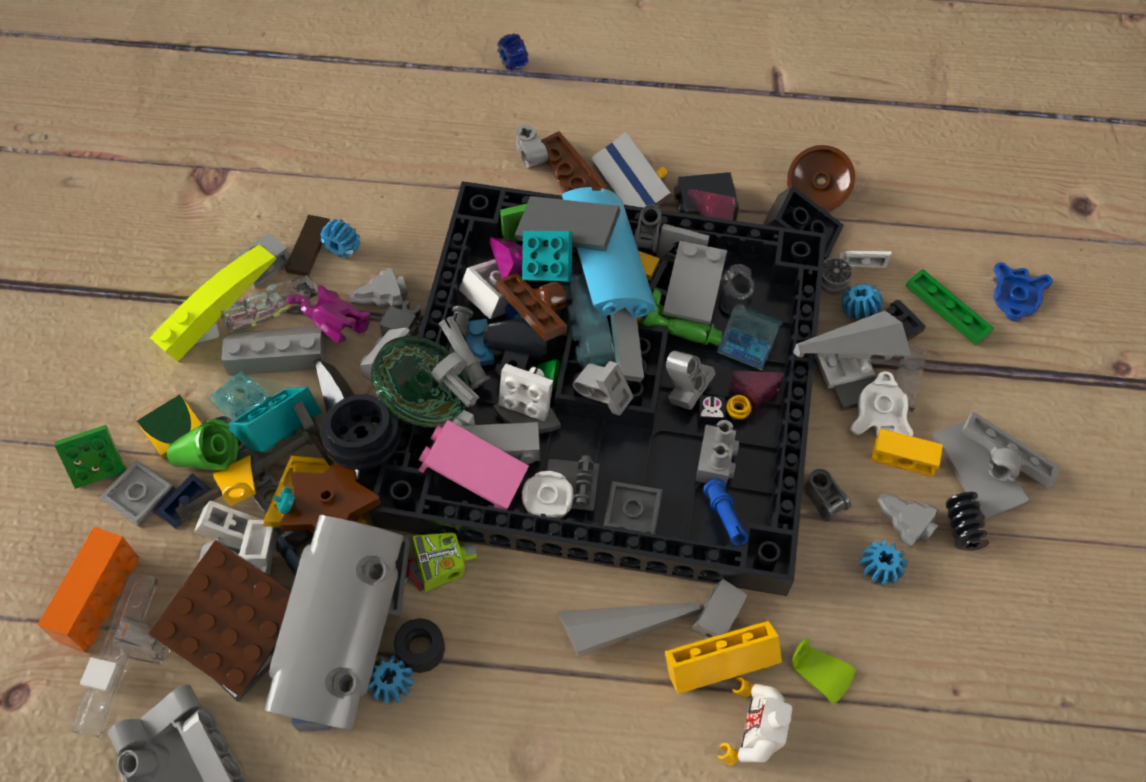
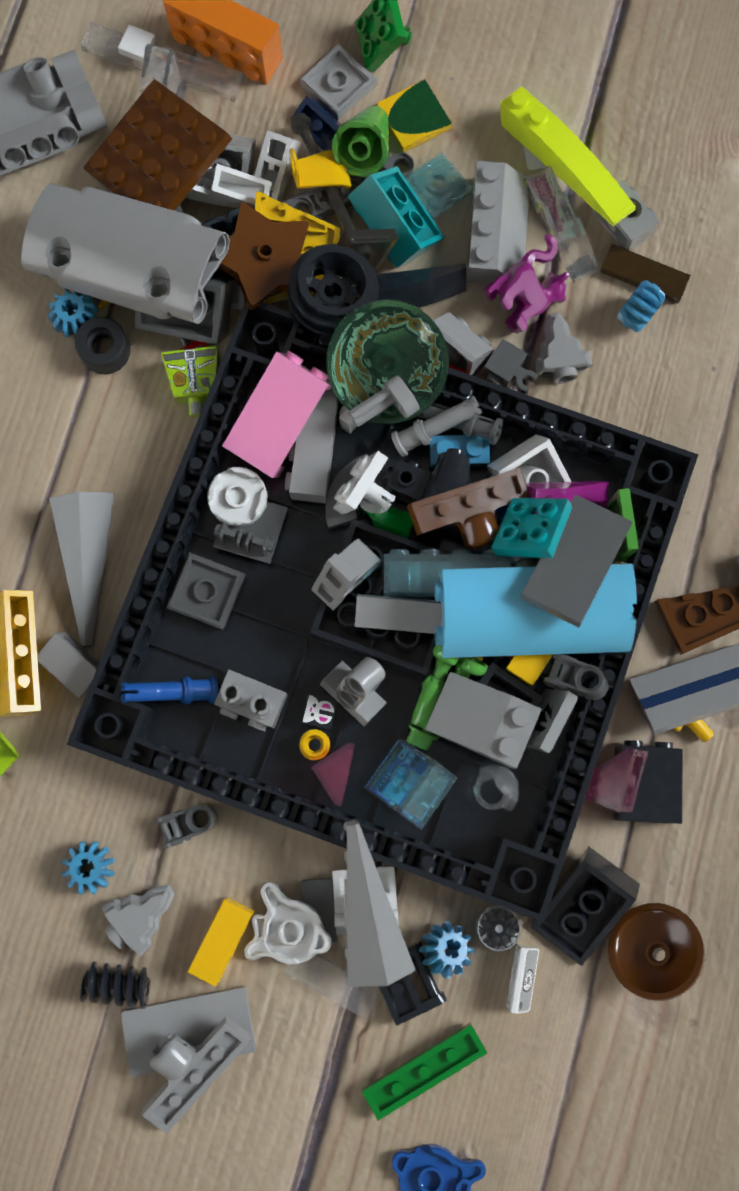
camera: 100 degrees right, 20 degrees up
(285, 500) = (270, 209): teal piece -> none

